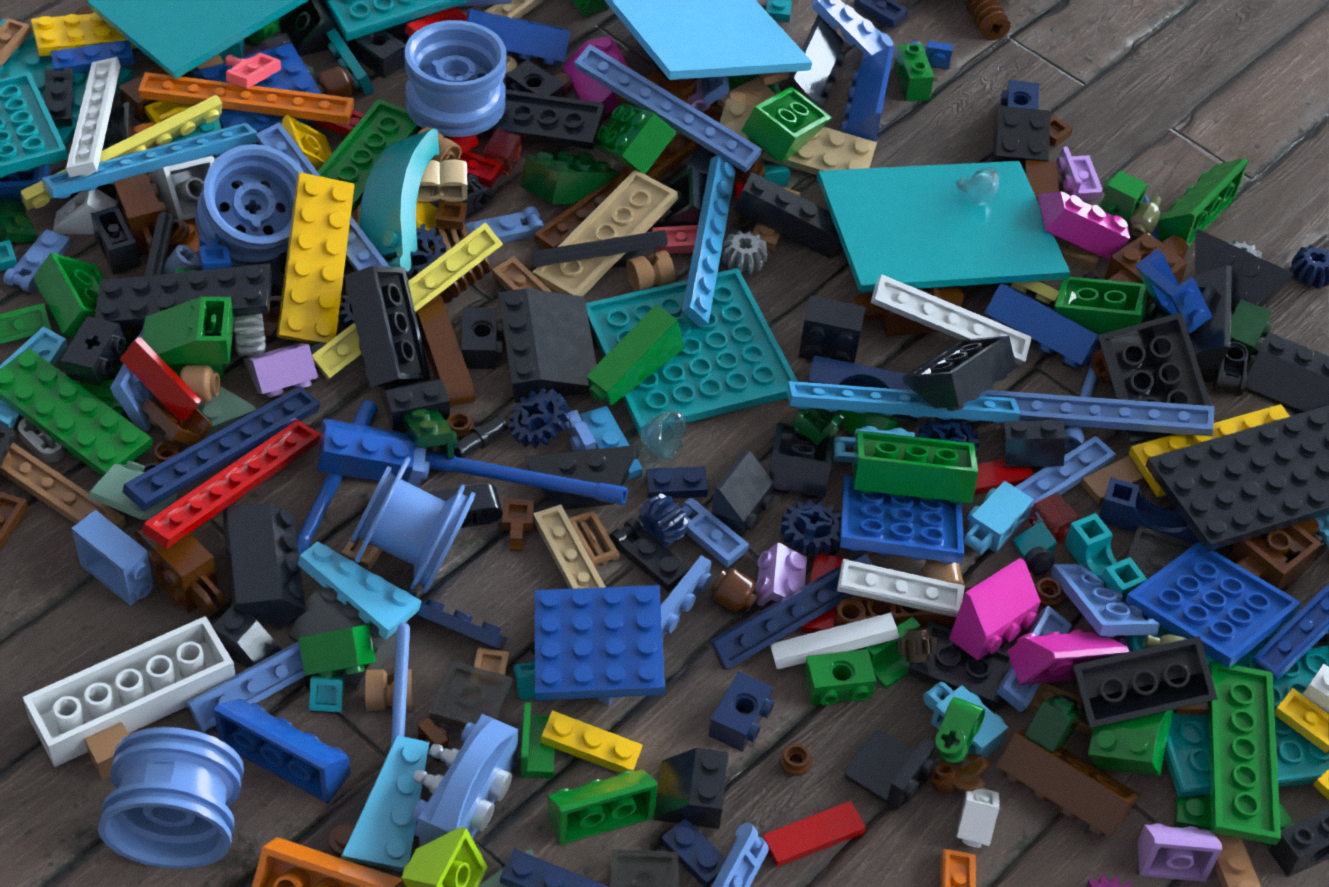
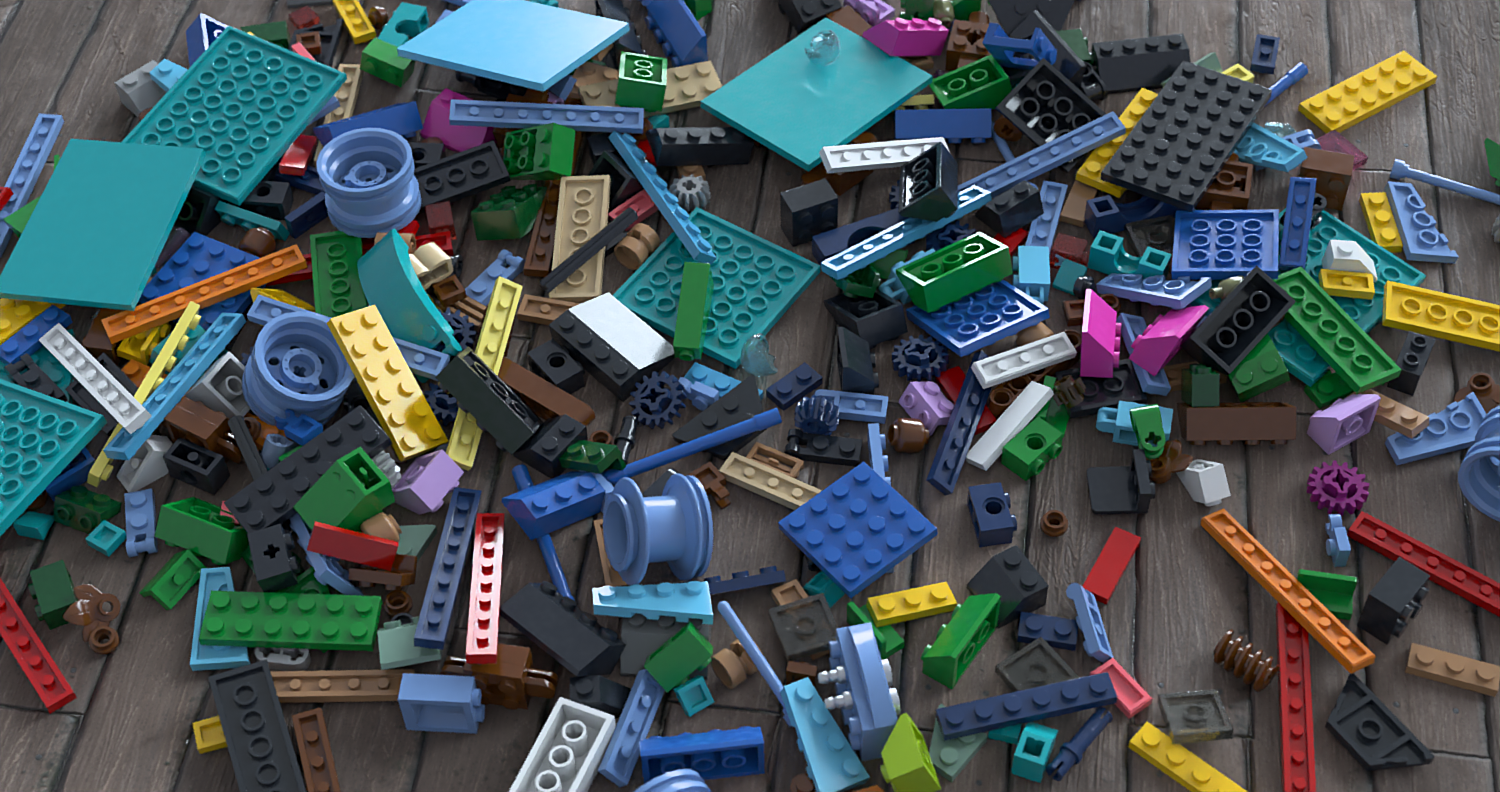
camera: 30 degrees left, 0 degrees up
(251, 70) = (189, 269): coral plate -> none
(390, 83) = (306, 216): none -> dark blue plate

